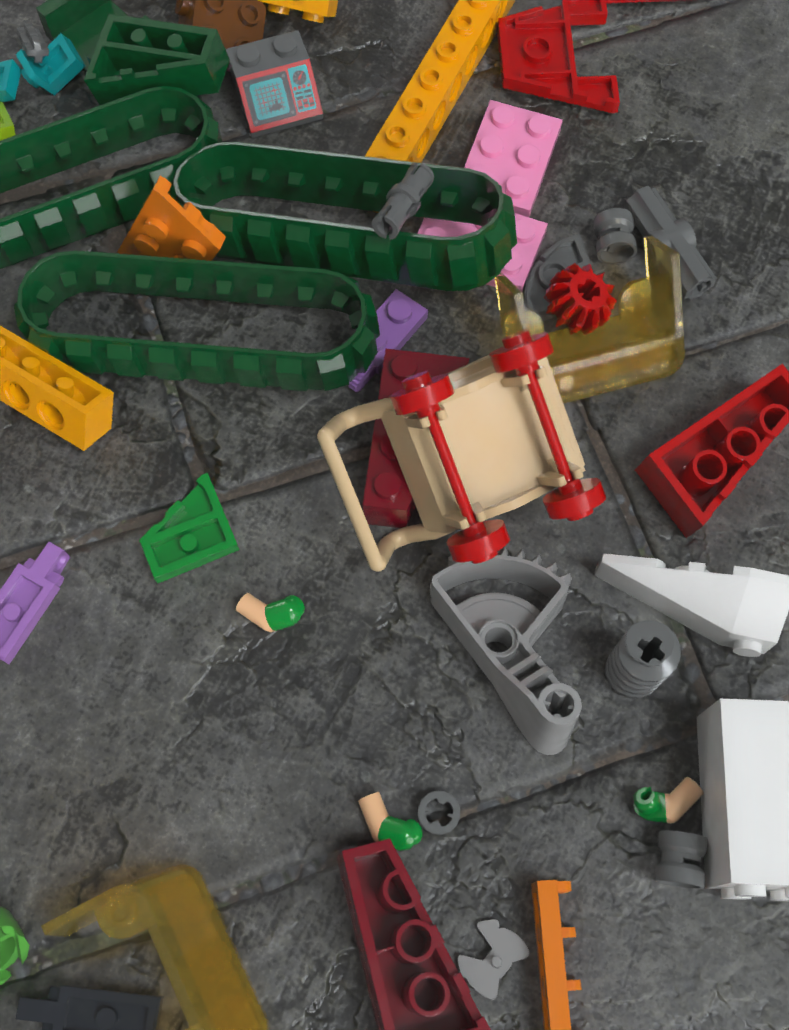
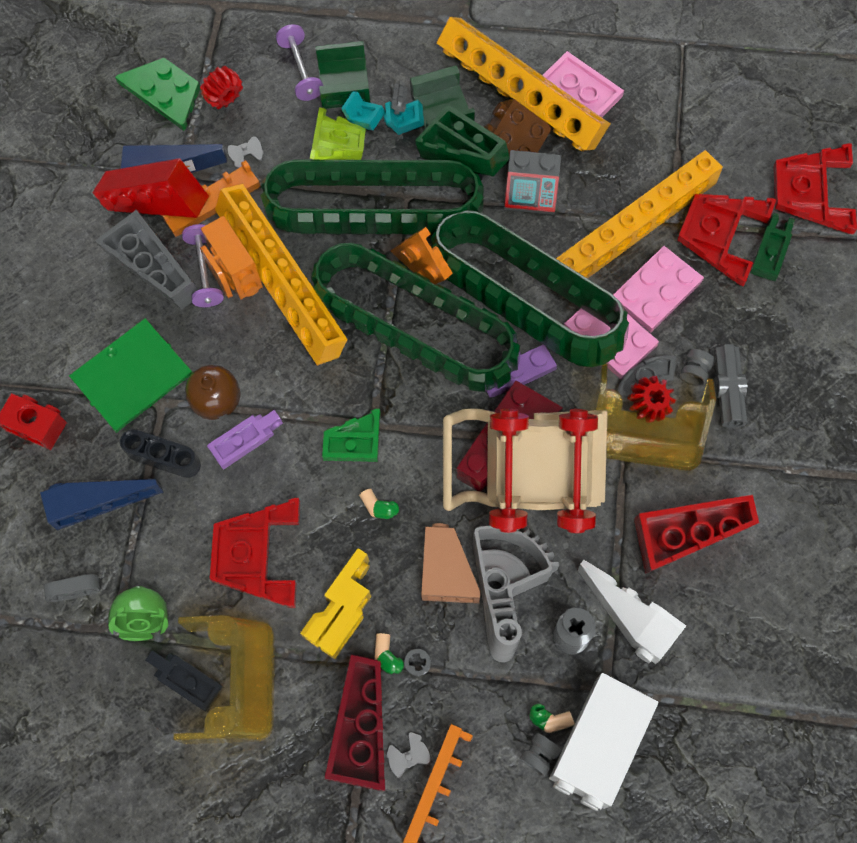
camera: 30 degrees right, 0 degrees up
(97, 777) = (242, 553): none -> red wing
(285, 767) = (344, 613): none -> yellow plate
(403, 201) = (560, 298): dark grey pin -> none
(415, 655) = (446, 568): none -> nougat slope
(630, 51) = (772, 249): none -> dark green hinge

